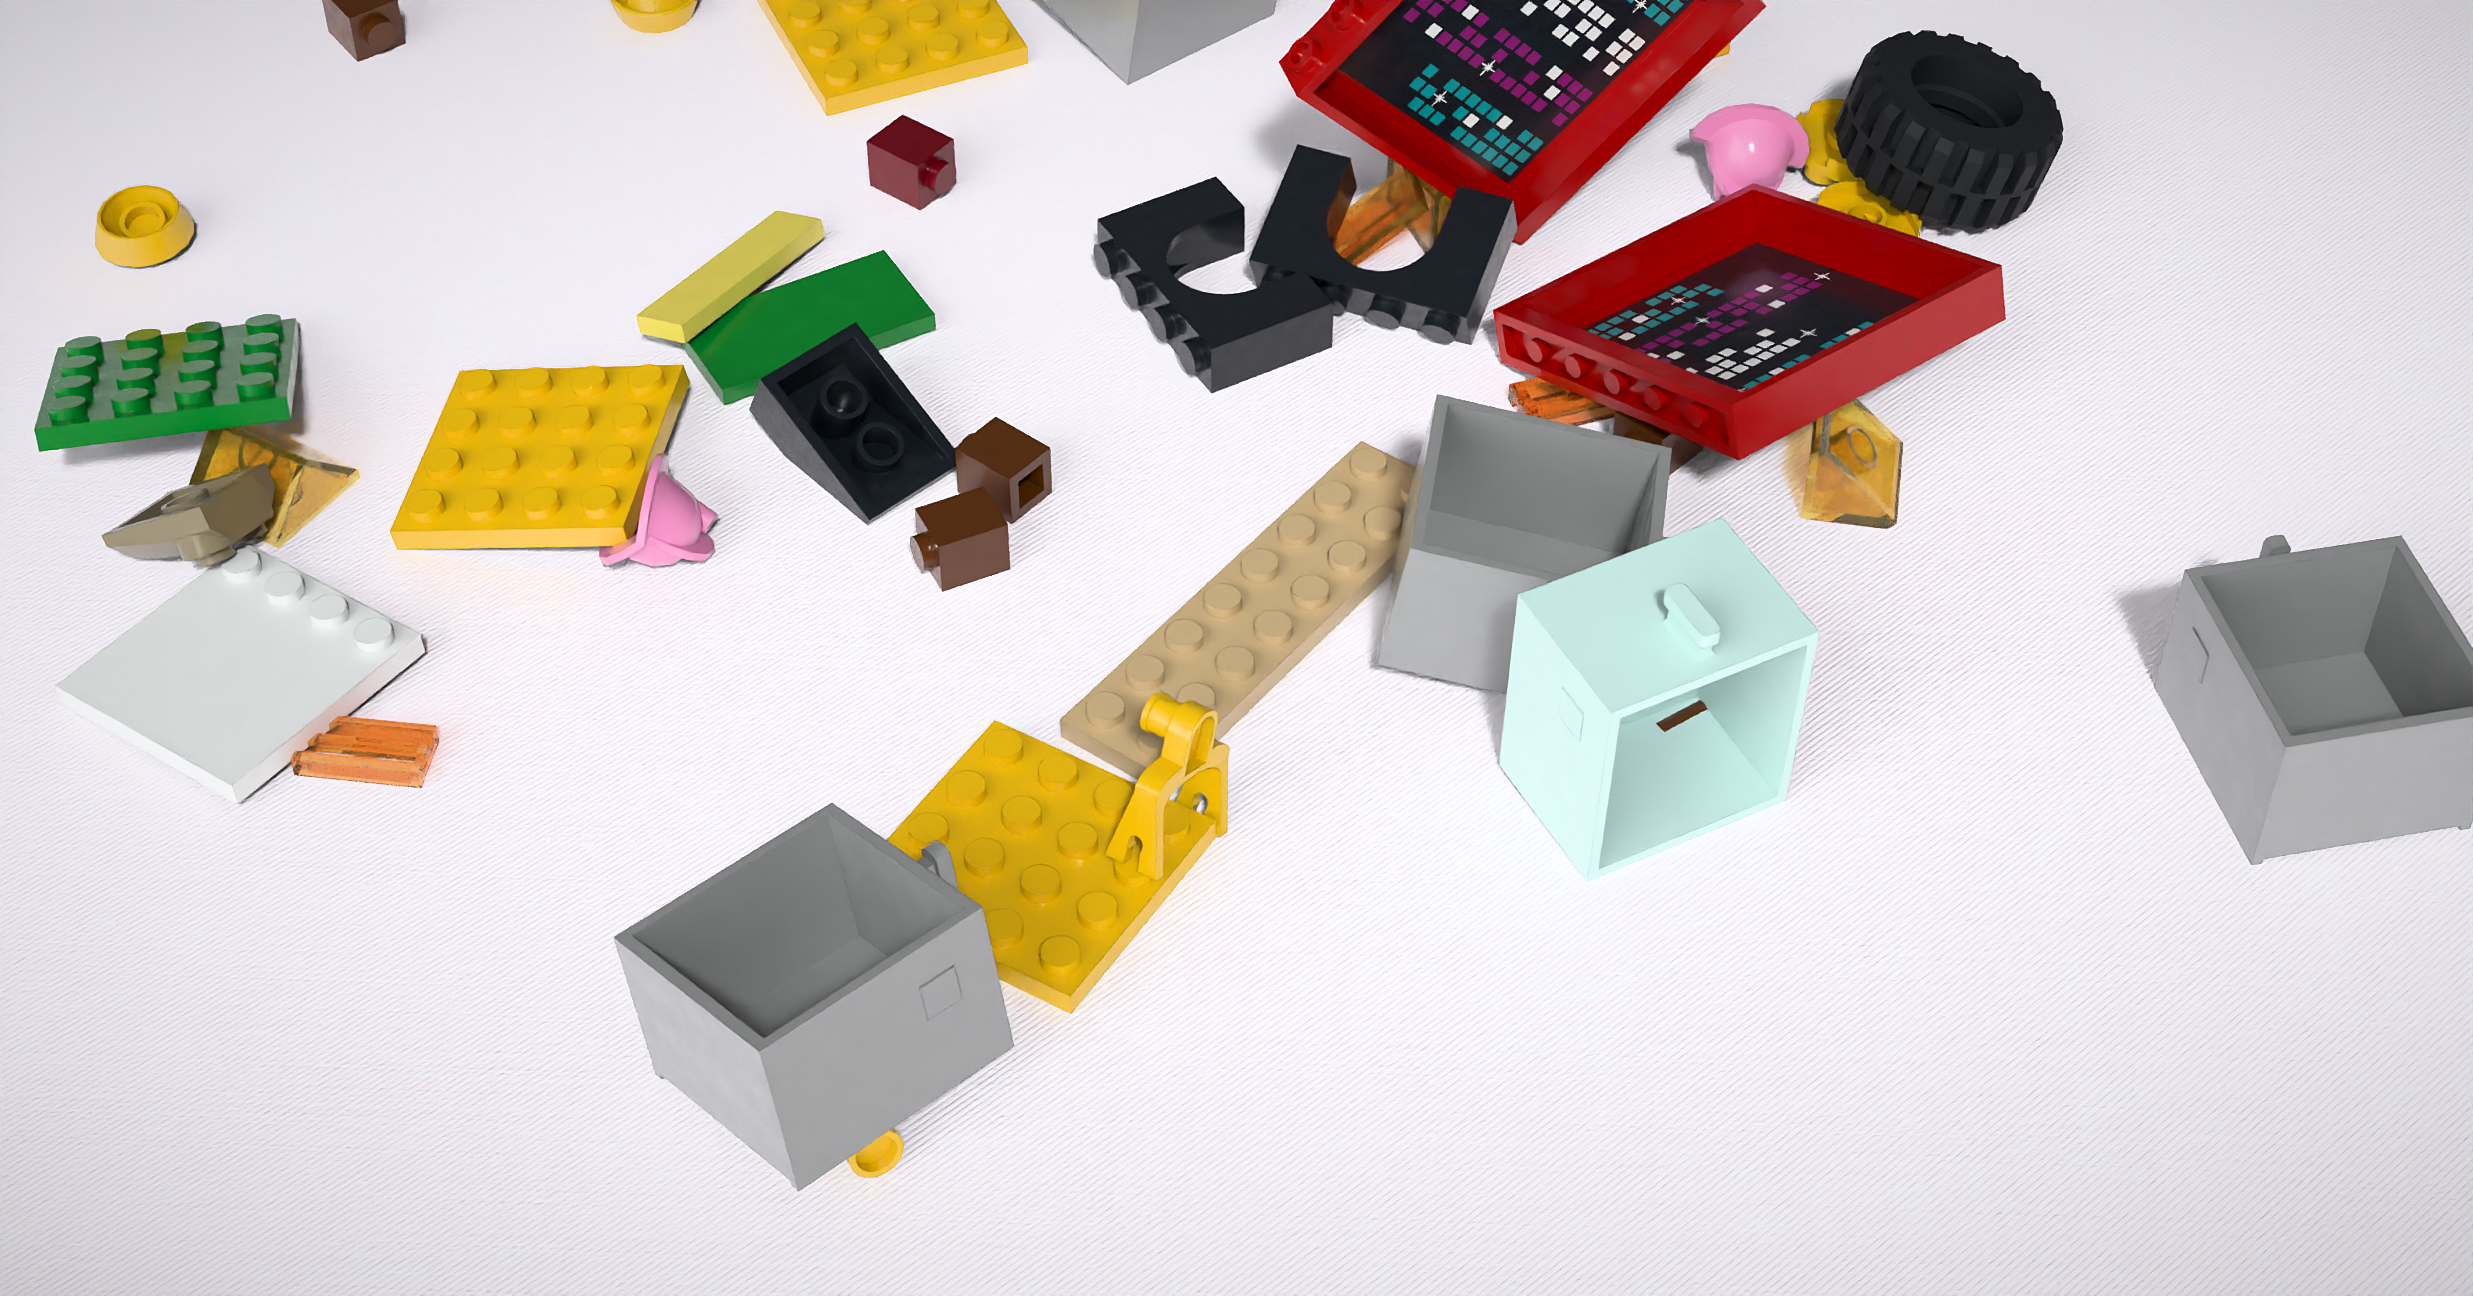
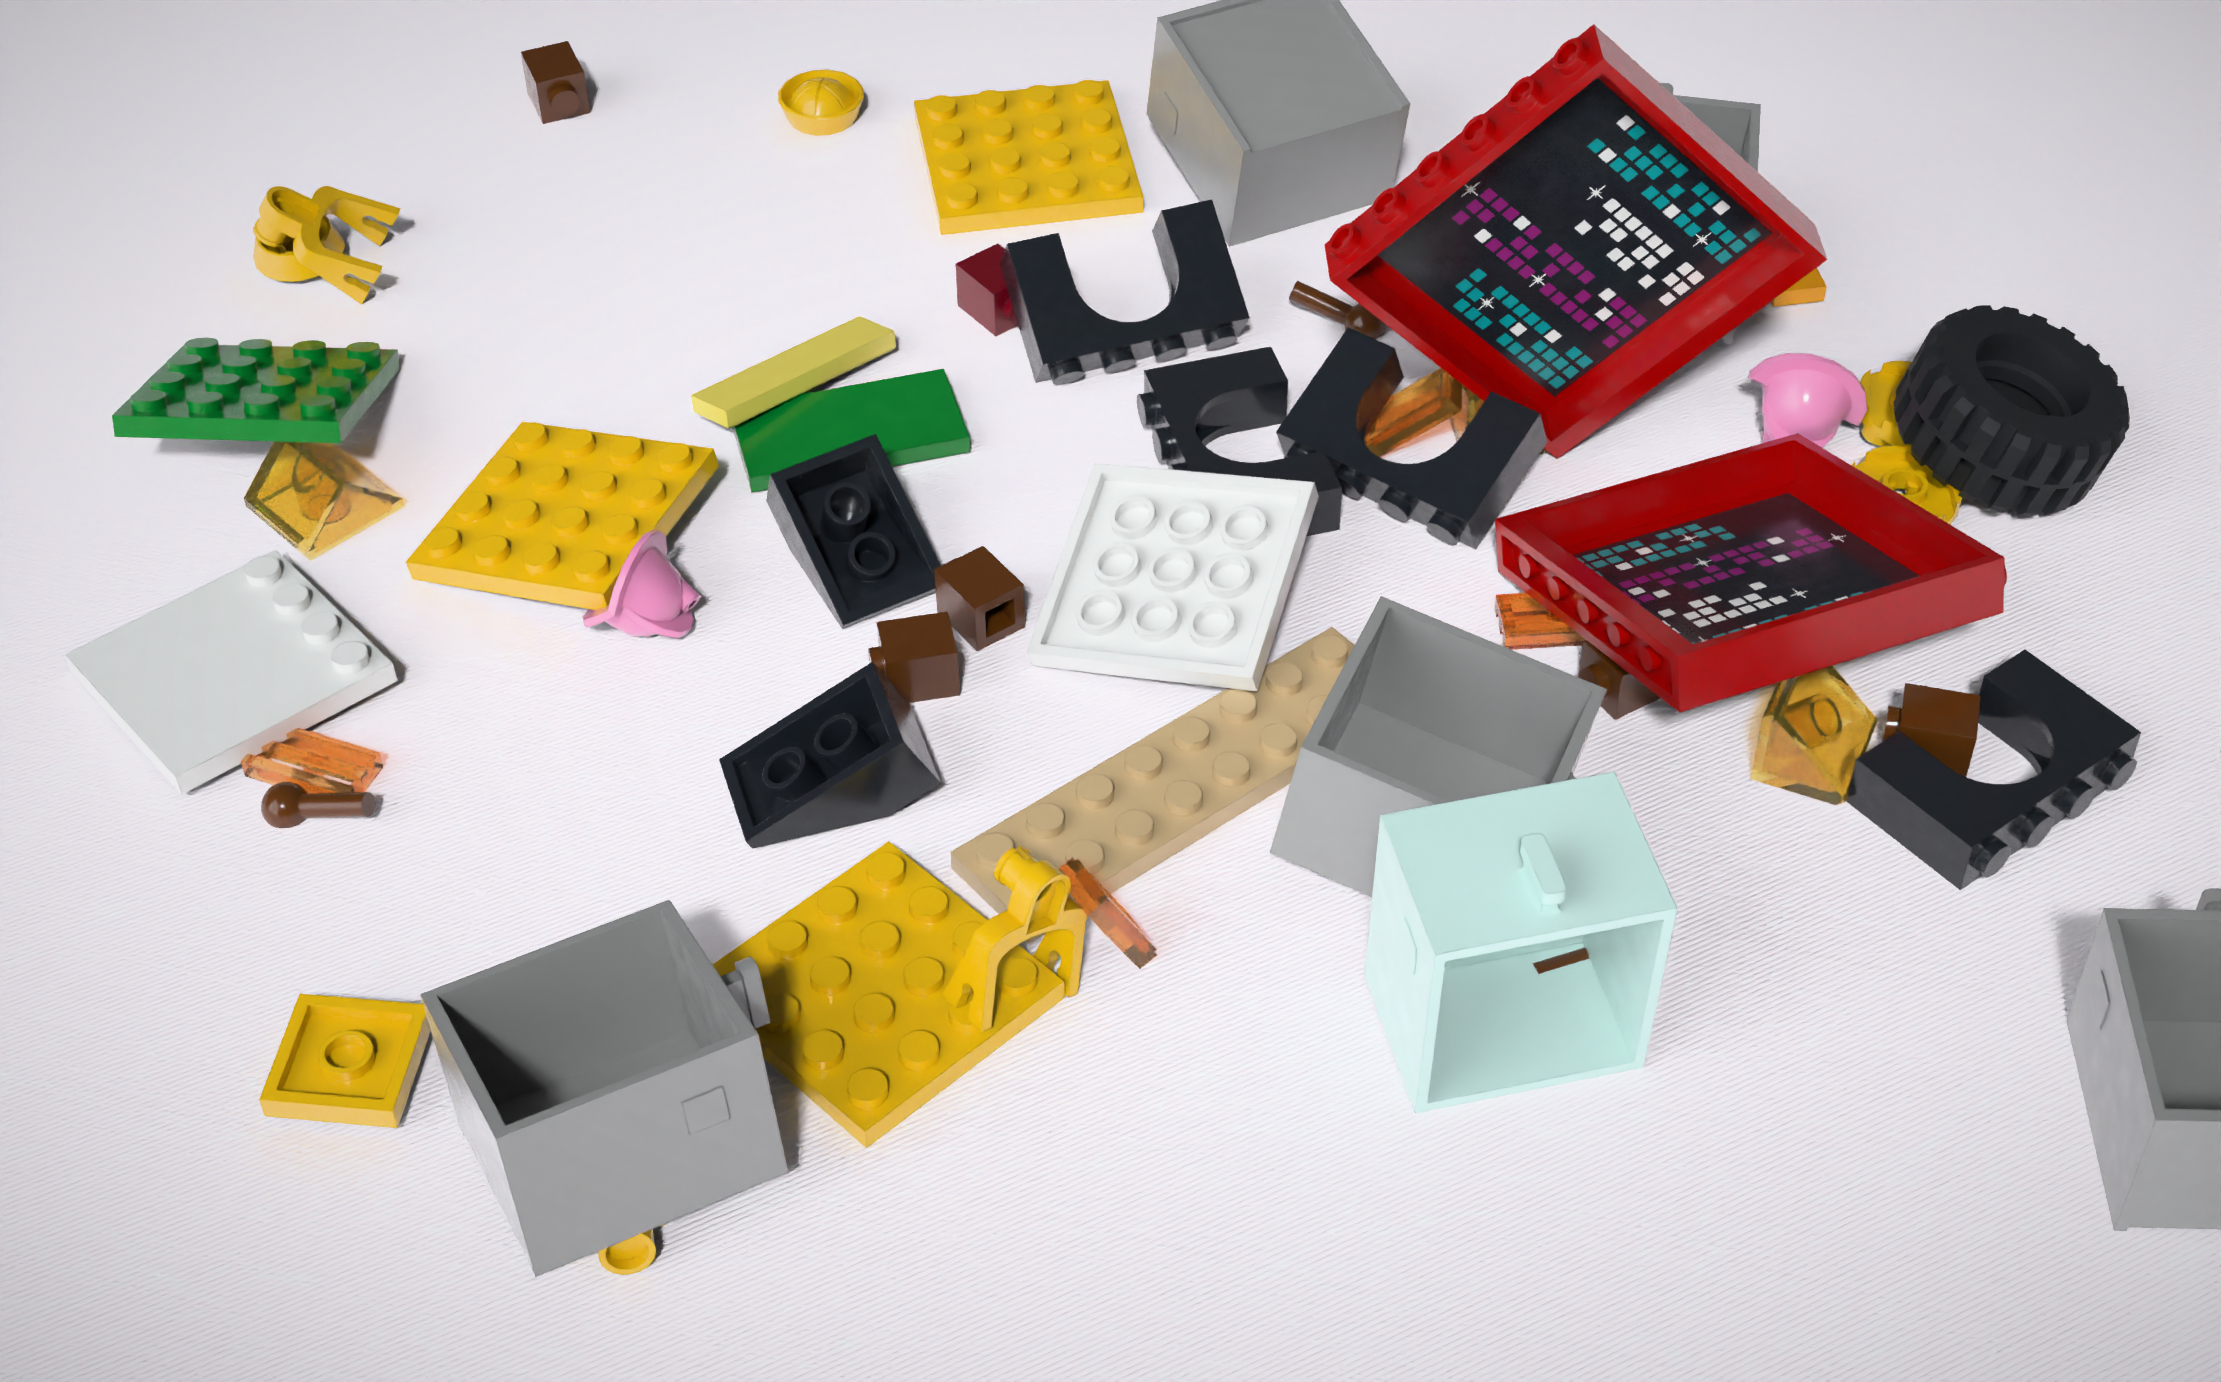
camera: 15 degrees right, 0 degrees up
(150, 194) = (298, 216): none -> yellow piece
(200, 519) = (240, 522): dark tan slope -> none
(357, 795) = (290, 805): none -> reddish brown bar
(520, 1028) = (346, 1061): none -> yellow plate
(909, 655) = (830, 763): none -> black slope
(1006, 198) = (1070, 338): none -> black arch
(1196, 415) = (1174, 576): none -> white plate
(1249, 749) = (1108, 913): none -> clear orange tile
(1280, 137) = (1350, 316): none -> reddish brown bar
(1961, 444) = (1938, 722): none -> reddish brown brick
(2024, 524) = (1975, 826): none -> black arch

